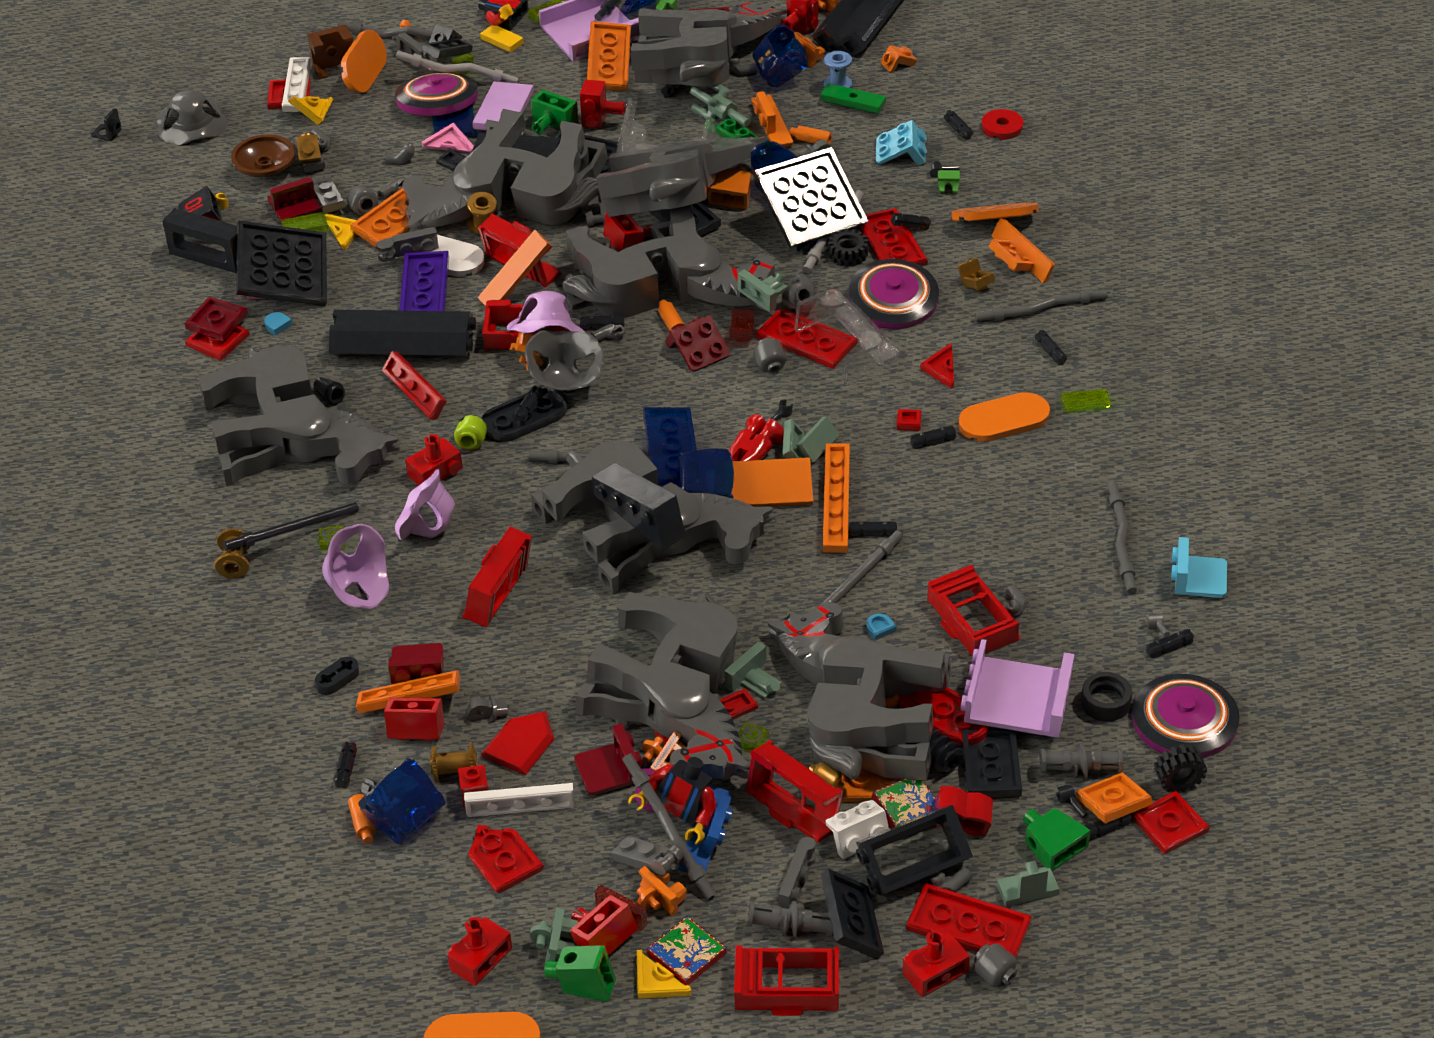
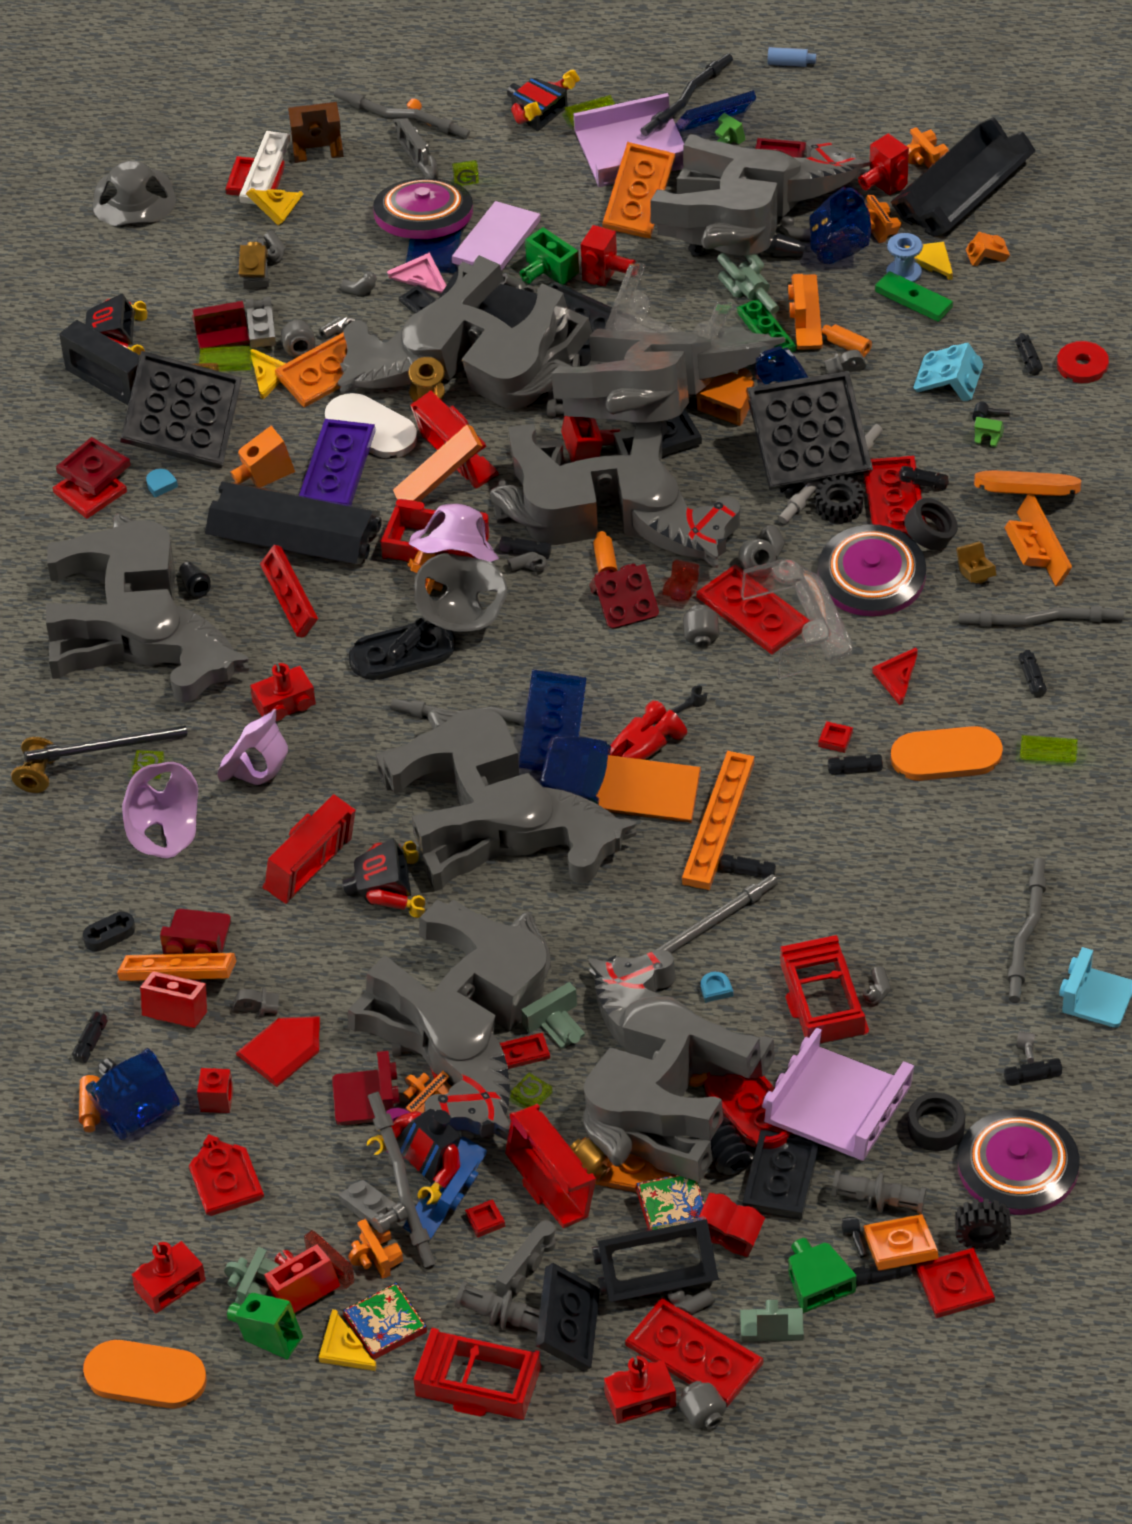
camera: 15 degrees right, 5 degrees up
(111, 124) = (41, 190): black bracket -> none
(263, 155) = (199, 260): reddish brown dish -> none
(363, 61) = (349, 151): orange tile -> none
(363, 289) = (263, 459): none -> orange torso
(409, 242) = (330, 407): dark grey hinge -> none
(417, 60) = (409, 161): light grey bar -> none
(443, 33) = (450, 132): bracket -> none
(447, 48) = (451, 148): black tile -> none
(450, 761) = (199, 1057): pearl gold hose -> none
(470, 432) = (334, 663): lime head -> none
(502, 38) = (523, 141): yellow tile -> none
(519, 800) = (259, 1115): white tile -> none
(569, 590) = (384, 877): none -> torso
(641, 504) = (480, 796): black wedge -> none
(739, 79) = (785, 247): none -> black cone
(746, 848) = (485, 1218): none -> red tile
(761, 292) = (715, 545): sand green piece -> none
(791, 437) = (691, 741): sand green tile -> none
(815, 441) = (713, 748): sand green tile -> none
(856, 825) = (607, 1218): white bracket -> none
(860, 70) = (935, 258): none -> yellow tile
(930, 251) = (940, 515): none -> black tyre

